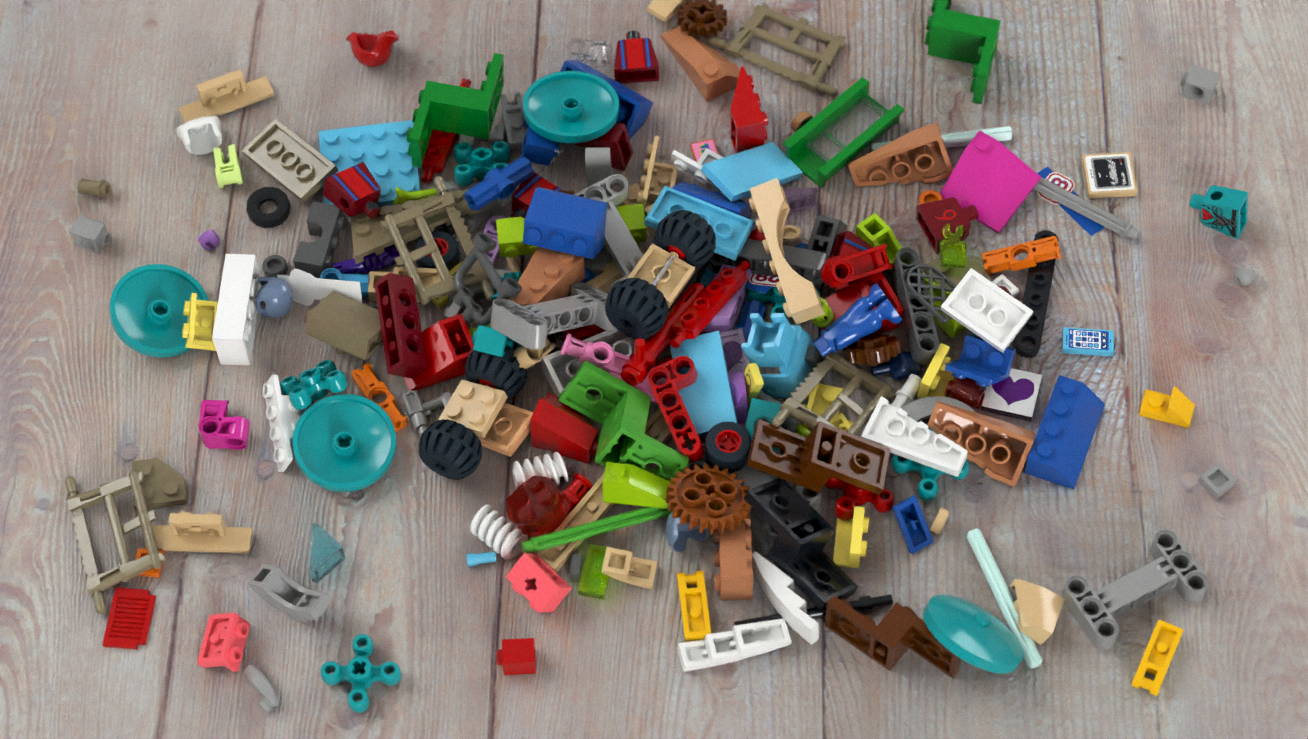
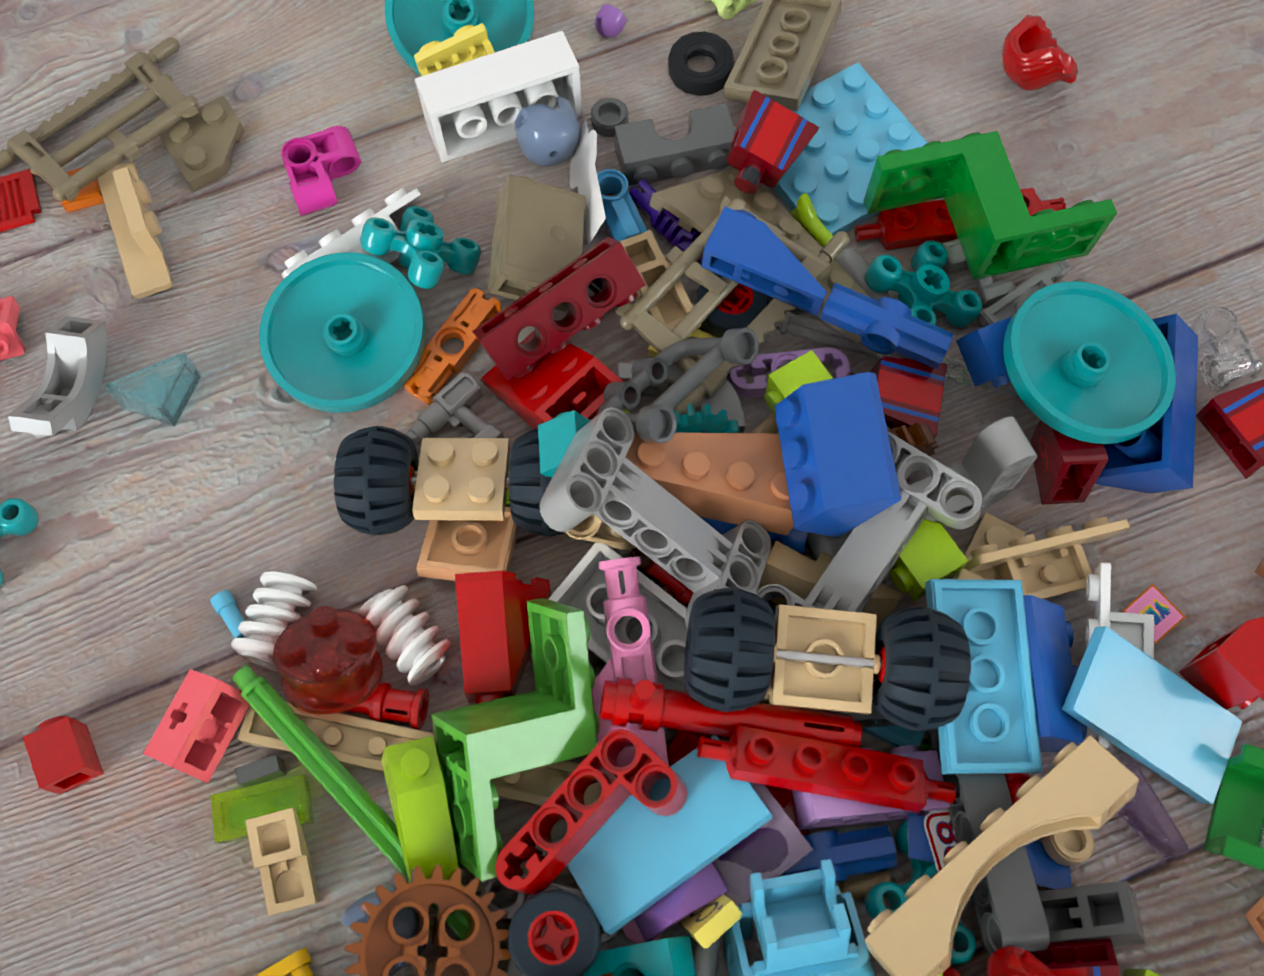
camera: 65 degrees right, 10 degrees up
(433, 218) = (755, 257): none -> blue slope

